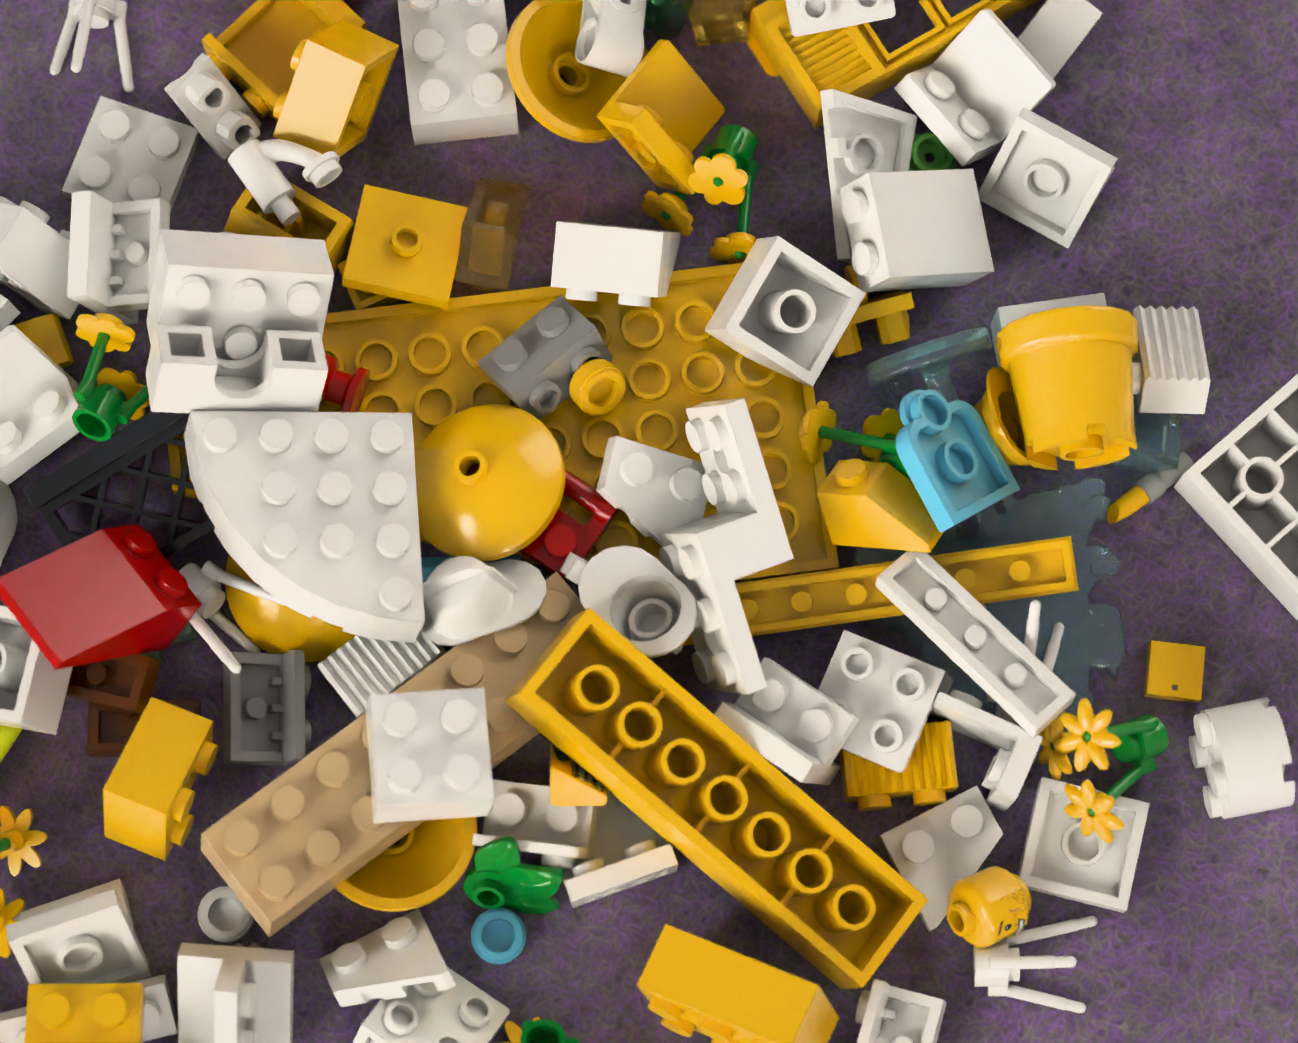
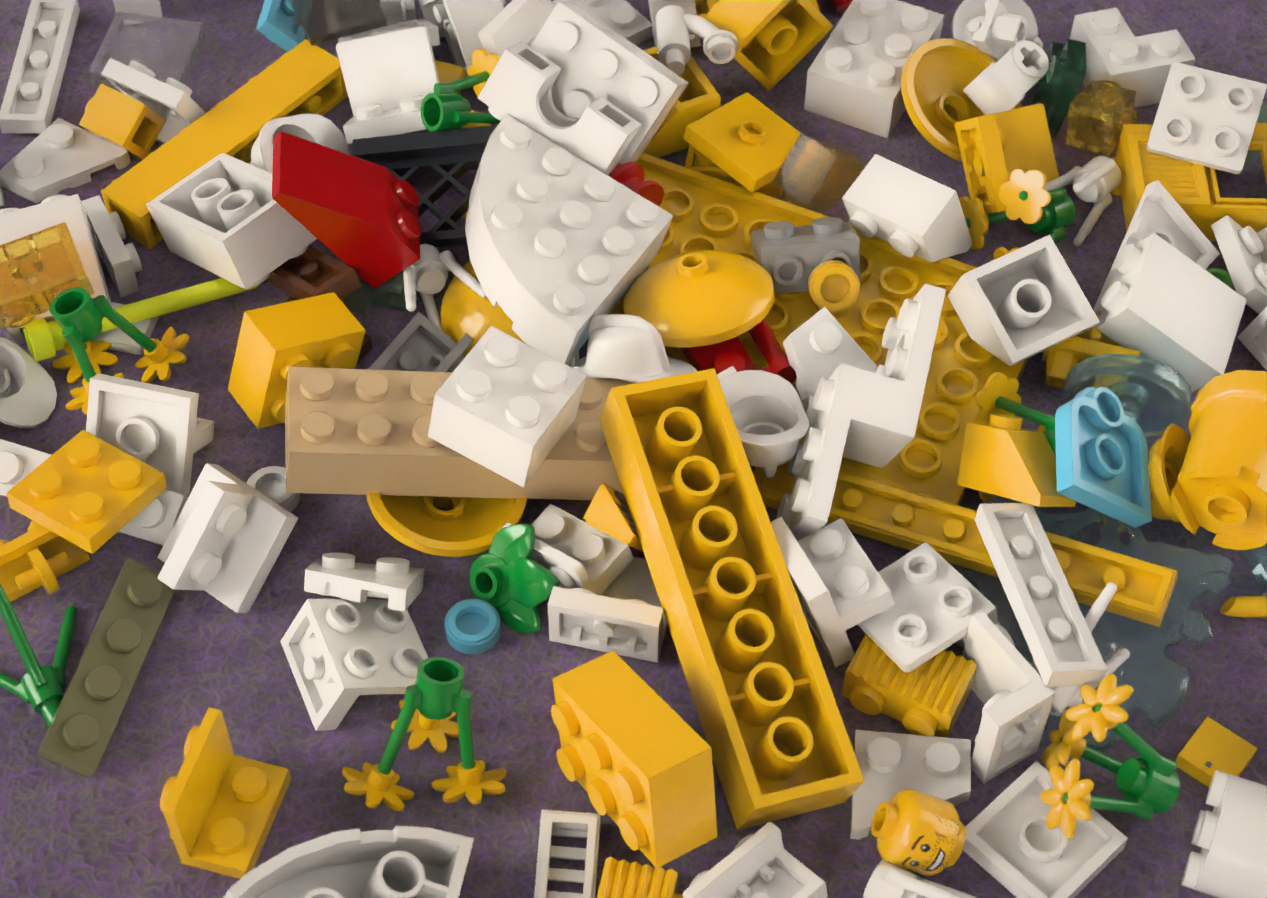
camera: 35 degrees right, 25 degrees down
(755, 91) = (1091, 184): none -> white plant

